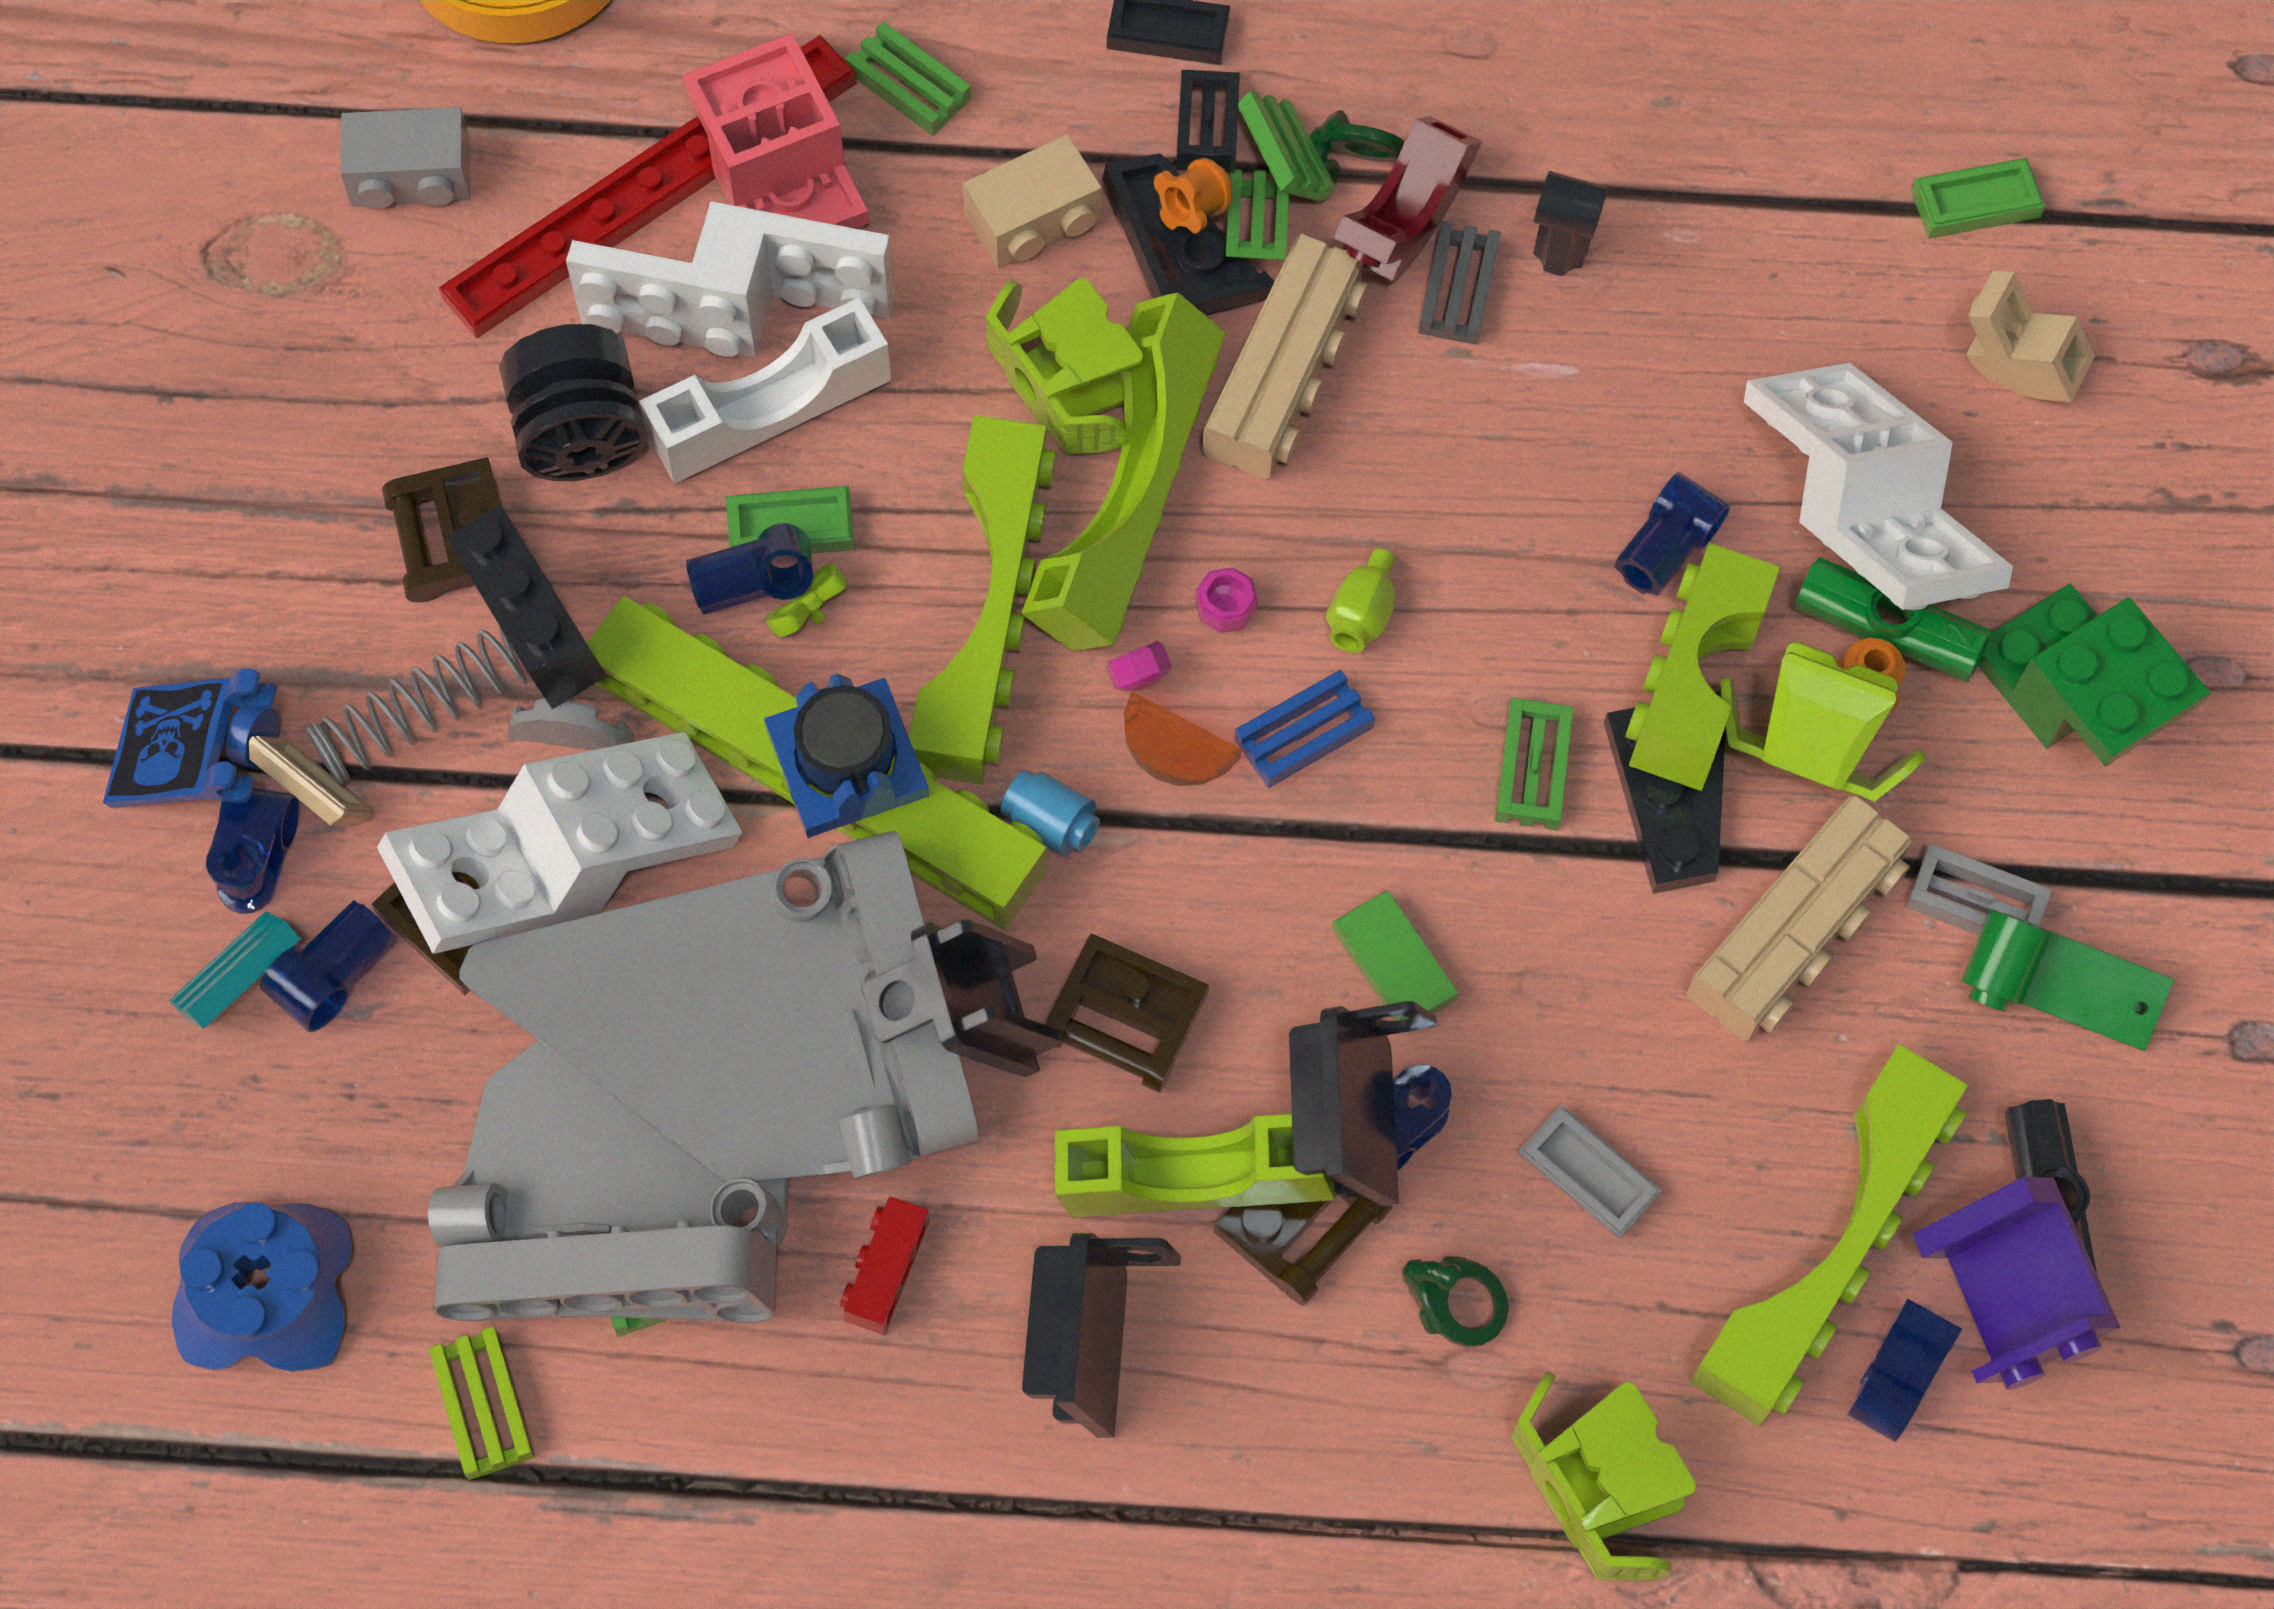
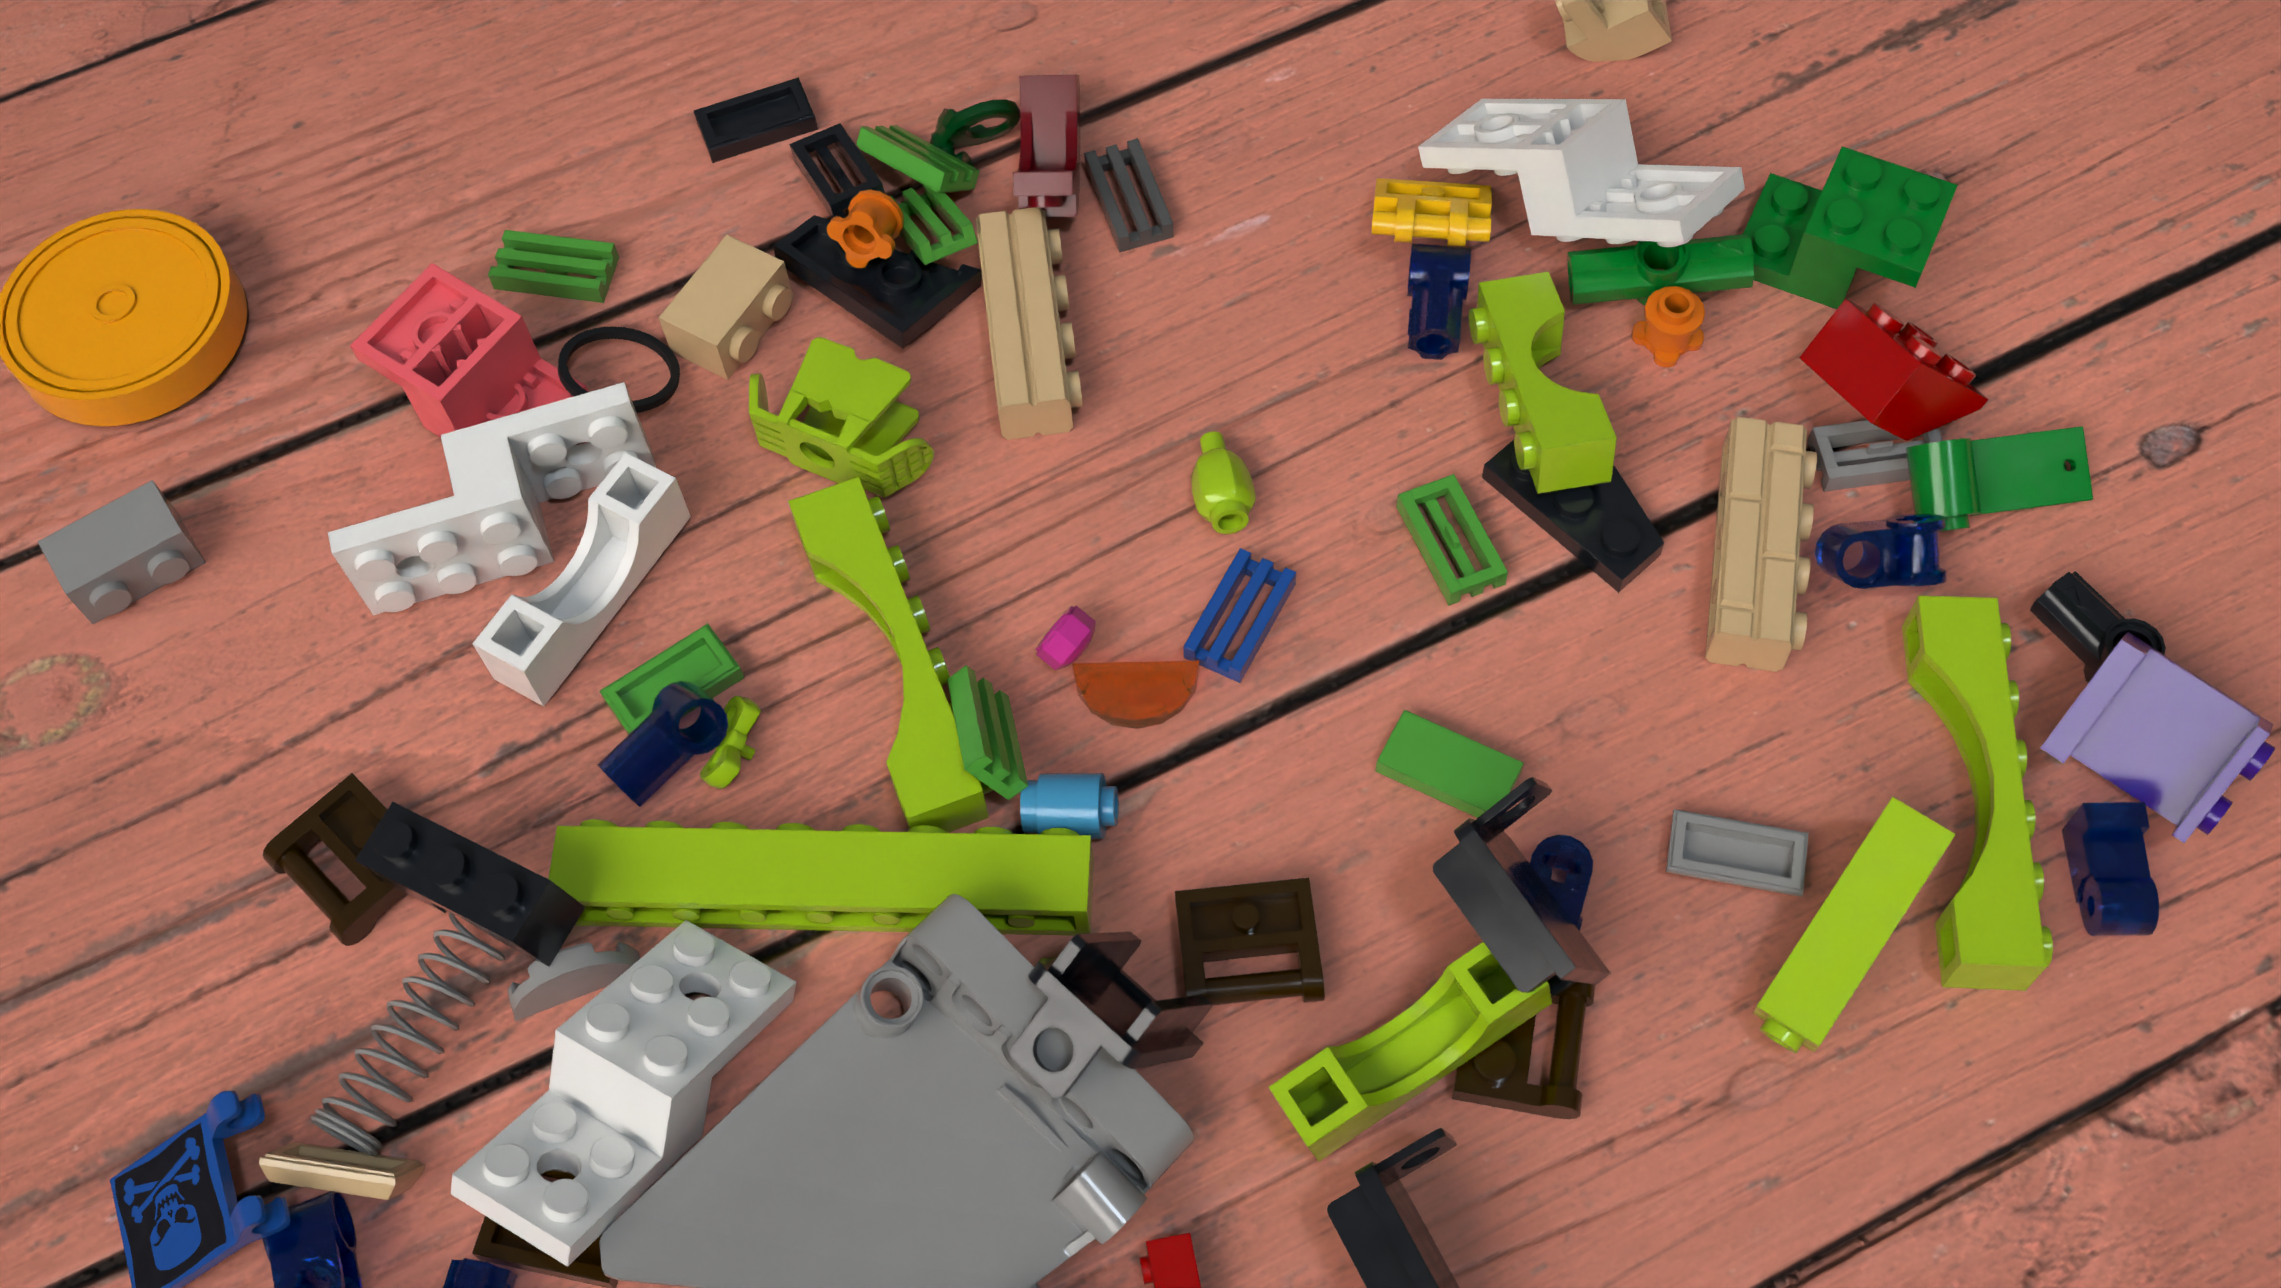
camera: 25 degrees left, 5 degrees down
(243, 726) = (245, 1154): blue tile -> none
(572, 402) = (407, 680): black wheel -> none
(605, 213) = (349, 494): red tile -> none
(845, 750) = (856, 848): piece -> none
(925, 173) = (626, 334): none -> black piece
(1017, 712) = (987, 733): none -> bright green tile
(1088, 584) = (978, 590): lime arch -> none
(1226, 600) = (1104, 543): dark pink tile -> none
(1430, 1287) = (1680, 1036): dark green piece -> none
(1566, 221) = (1191, 91): black piece -> none
(1606, 1477) = (1944, 1110): lime piece -> none
(1632, 1285) = (1851, 927): none -> lime slope
(1720, 449) = (1432, 211): none -> yellow plate
(1823, 722) = (1677, 370): lime piece -> none
(1910, 993) = (1895, 551): none -> clear blue piece
(2031, 833) = (1891, 371): none -> red slope

